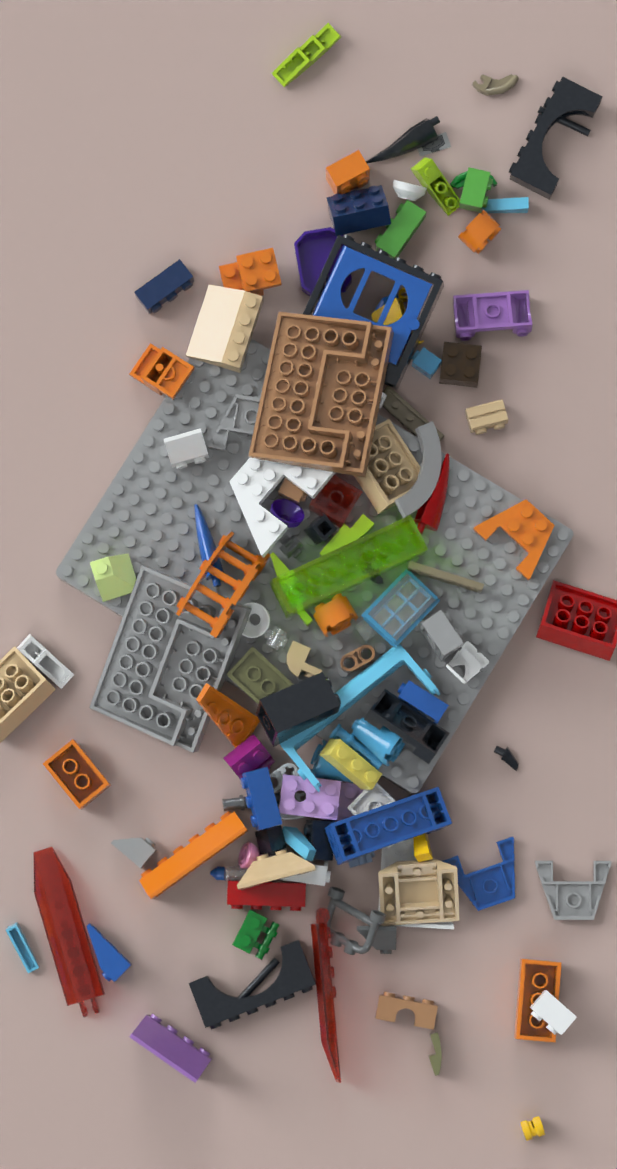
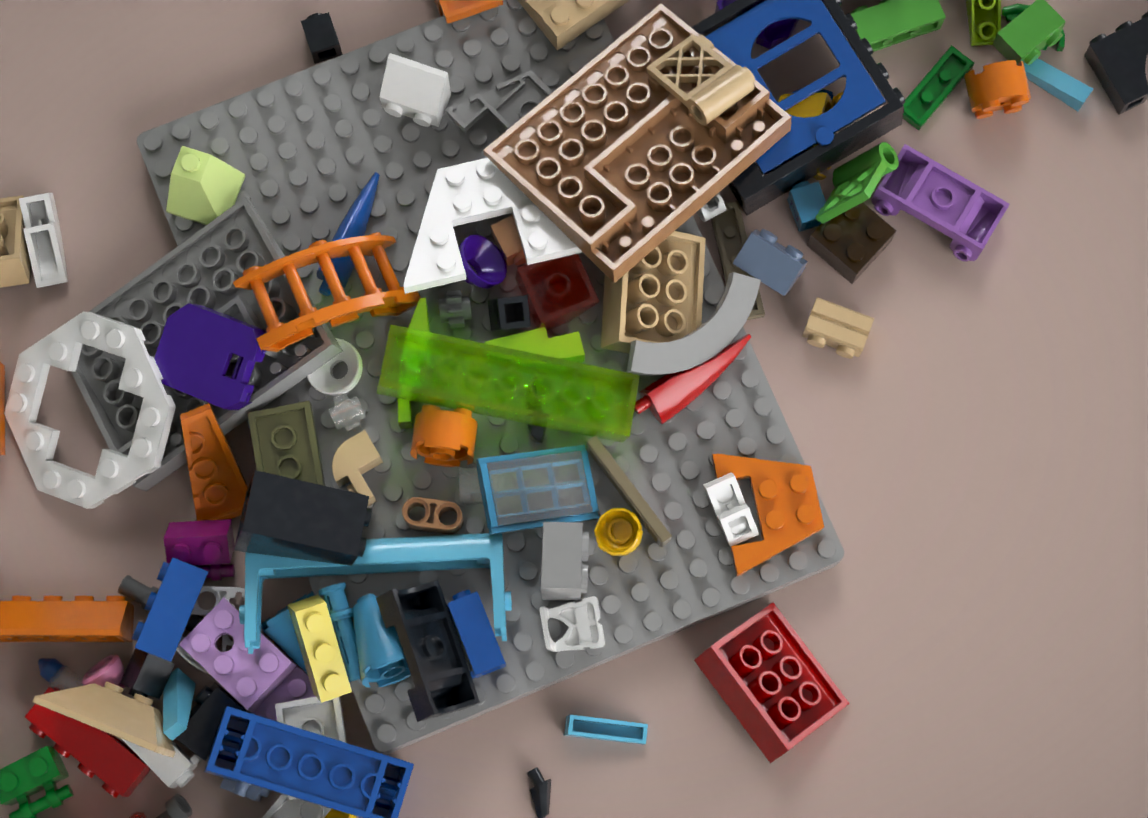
camera: 30 degrees right, 5 degrees down
(107, 451) = (321, 37): none -> black brick
(158, 696) = (138, 377): none -> white plate
(181, 662) = (198, 352): none -> dark purple piece
(346, 340) = (713, 91): none -> tan piece
(429, 407) = (771, 261): none -> sand blue brick
(444, 331) = (857, 180): none -> bright green piece
(446, 251) = (936, 87): none -> green tile
(455, 600) = (618, 532): none -> yellow hair
(502, 549) = (731, 509): none -> white slope
(516, 703) = (605, 729): none -> medium azure piece

